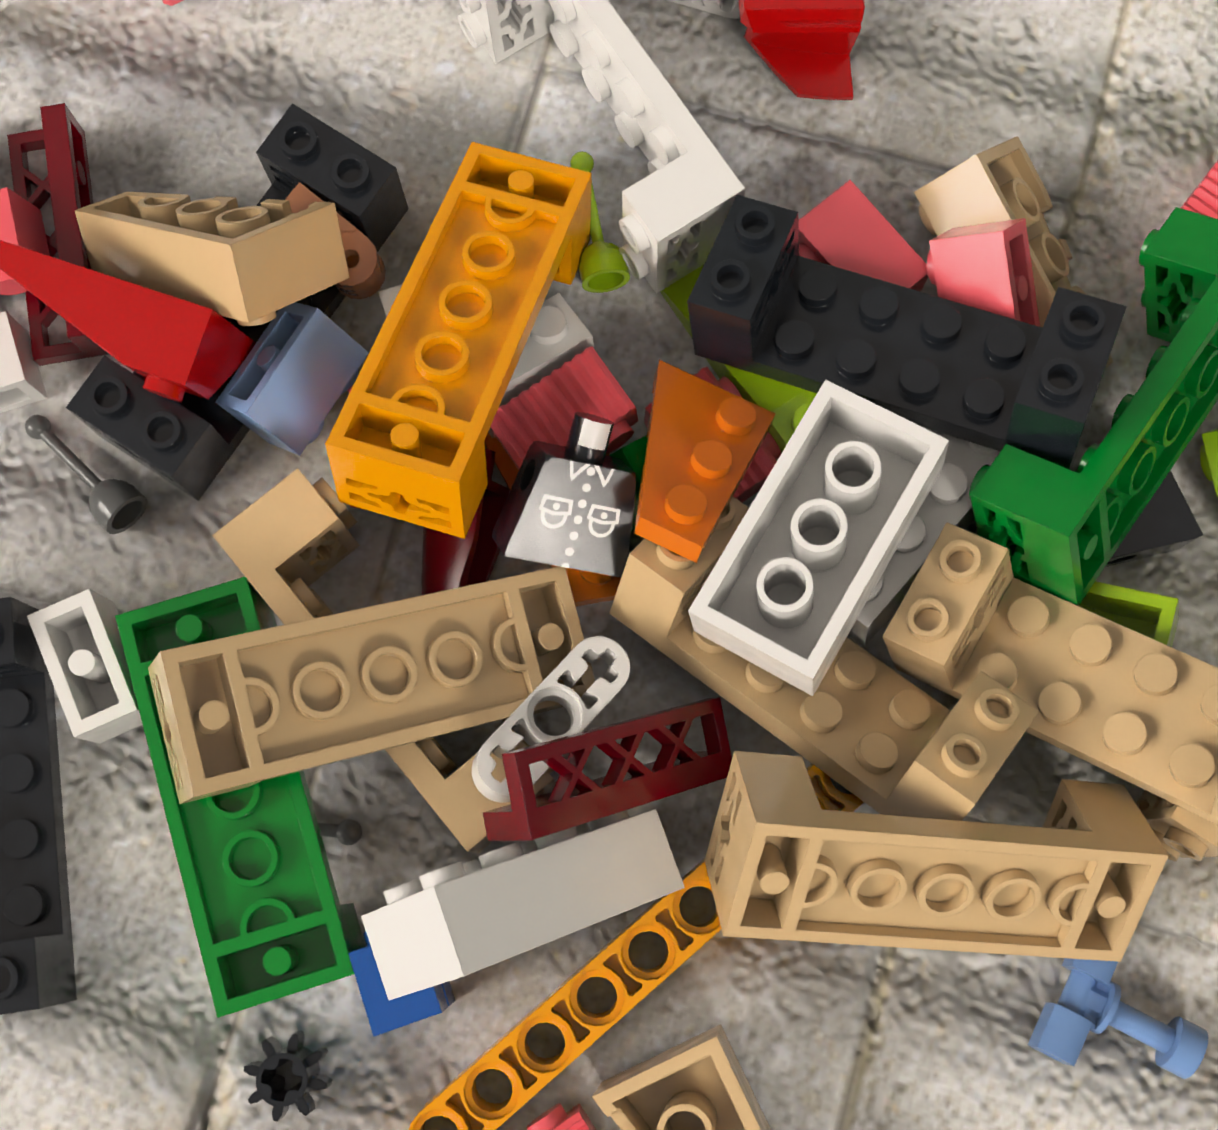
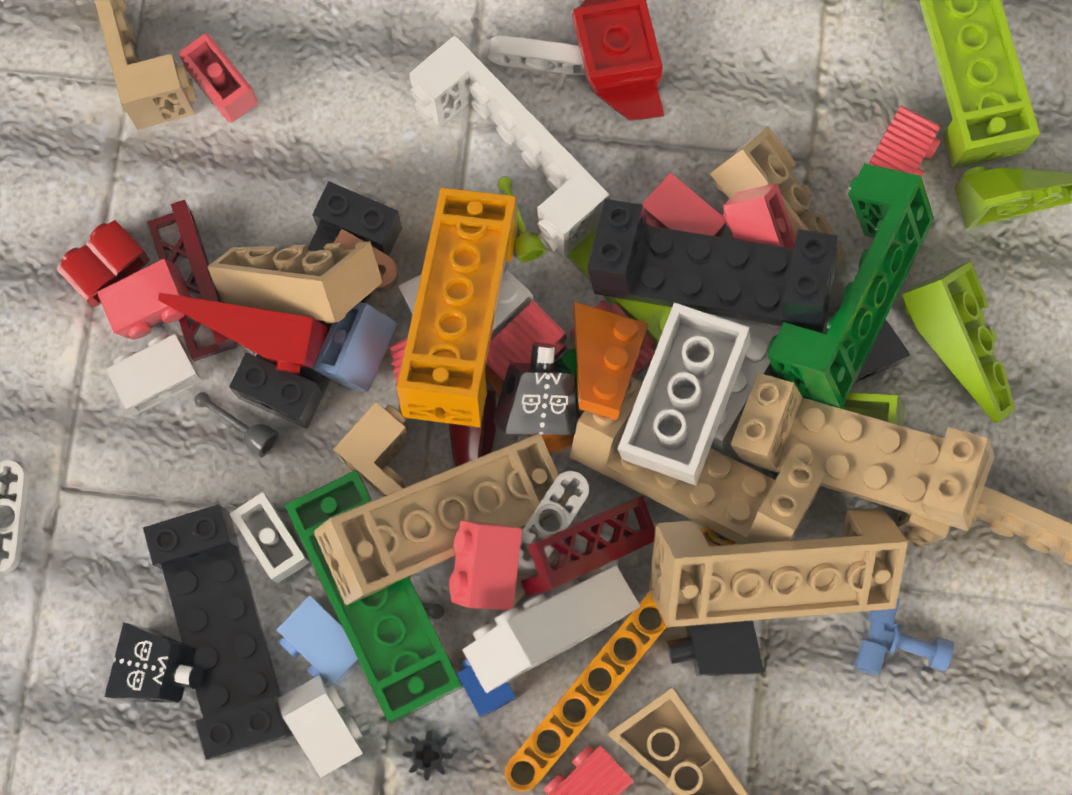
camera: 10 degrees left, 0 degrees up
(112, 997) = (320, 725): none -> white brick
(133, 845) = (319, 640): none -> light blue brick
(424, 777) = (485, 565): none -> coral brick
(807, 981) = (719, 649): none -> black torso

